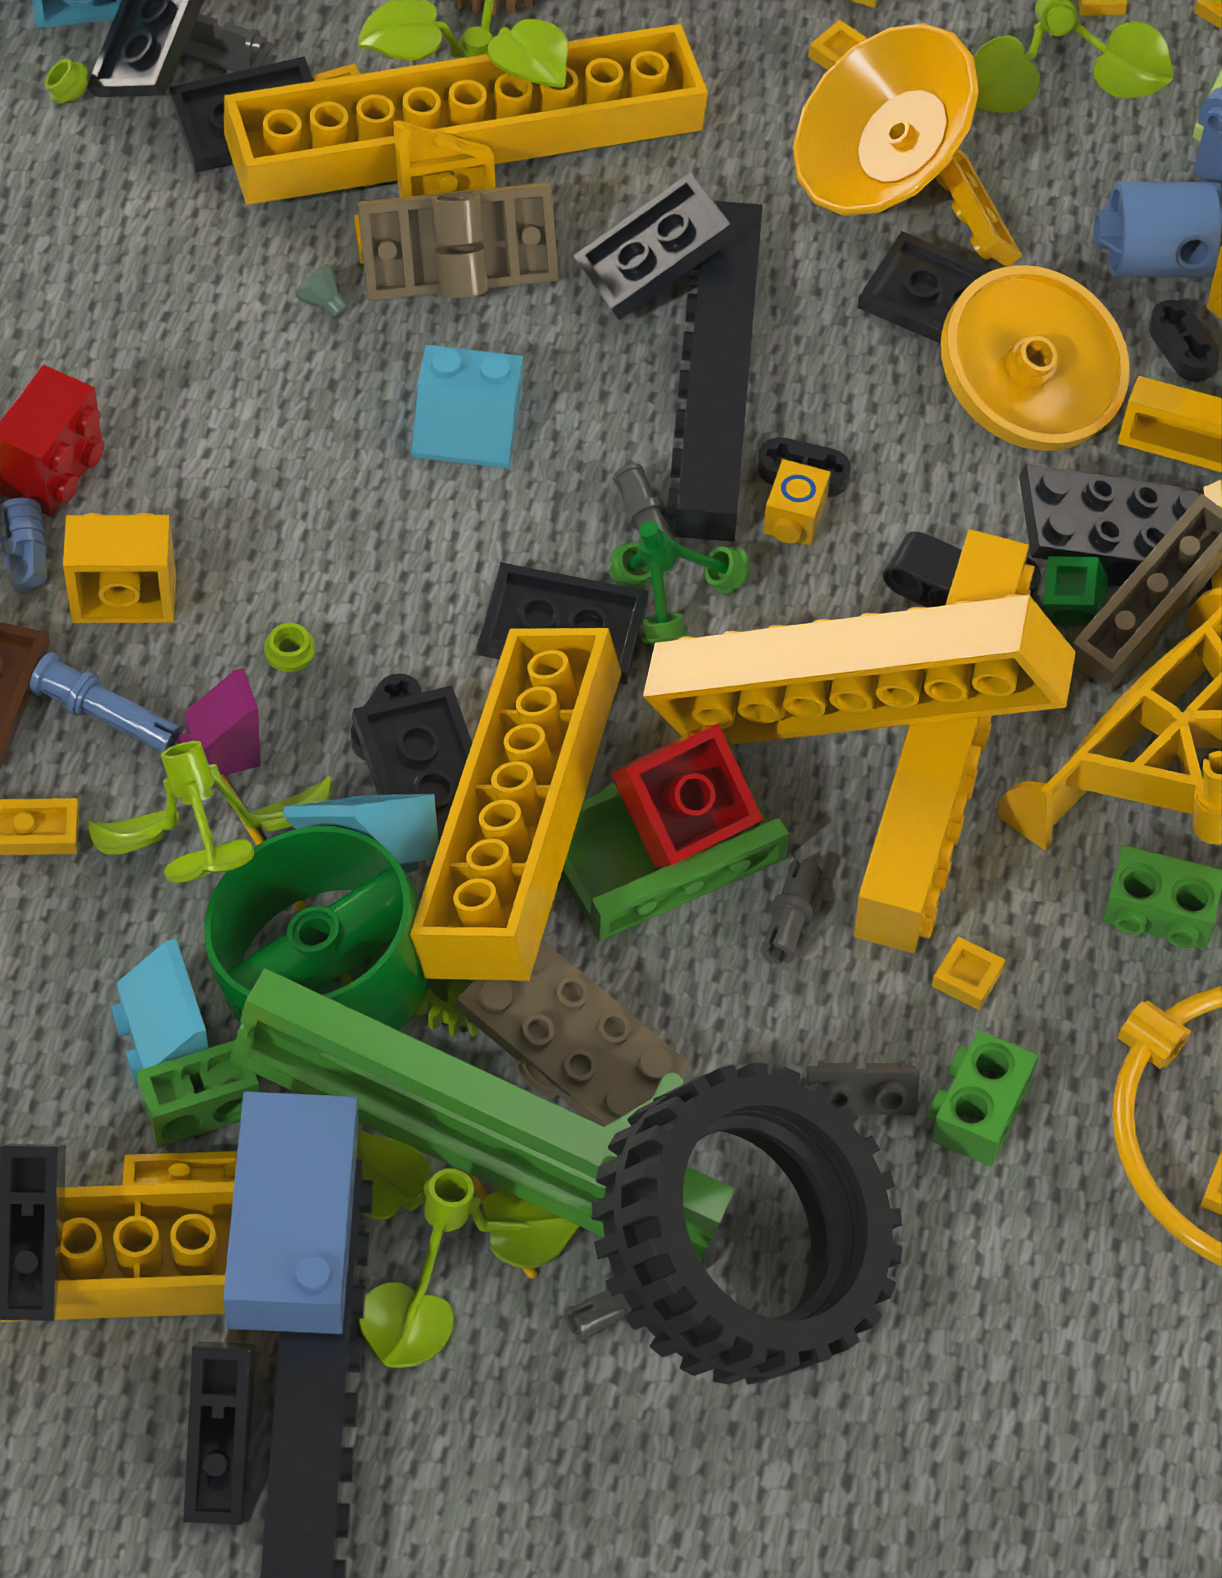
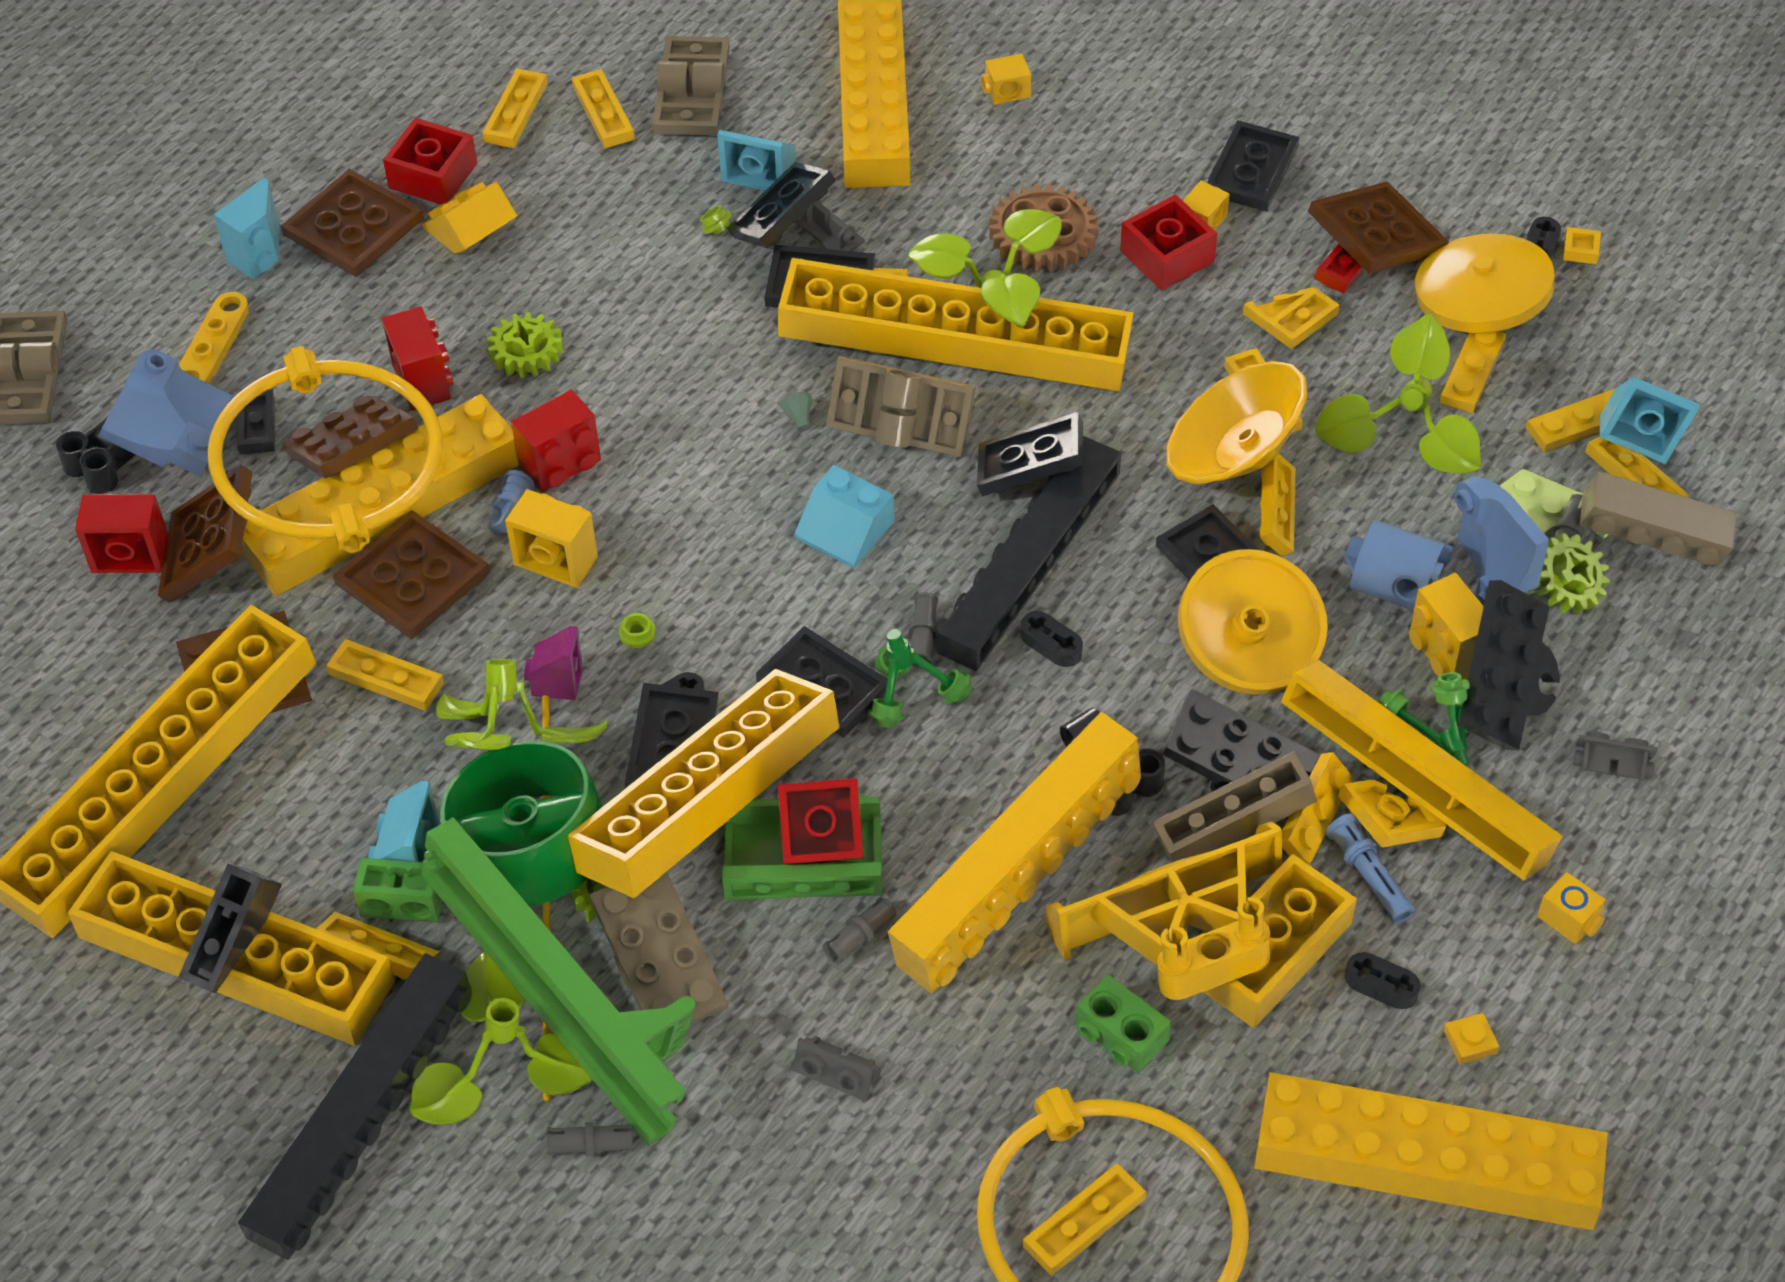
camera: 30 degrees right, 5 degrees down
(84, 694) = (489, 611): medium blue pin -> none
(218, 1431) = (284, 1108): black slope -> none
(291, 1213) = (392, 985): medium blue brick -> none
(398, 822) = (608, 761): medium azure slope -> none
(439, 162) = (914, 349): yellow wing -> none
(796, 503) = (1028, 660): yellow brick -> none
(839, 1193) = (760, 1094): black tyre -> none
(864, 671) = (970, 780): yellow brick -> none
(968, 973) = (955, 1020): yellow plate -> none
(990, 1100) = (918, 1113): bright green brick -> none
(1074, 589) = (1180, 785): green brick -> none
(1176, 344) = (1368, 650): black beam -> none

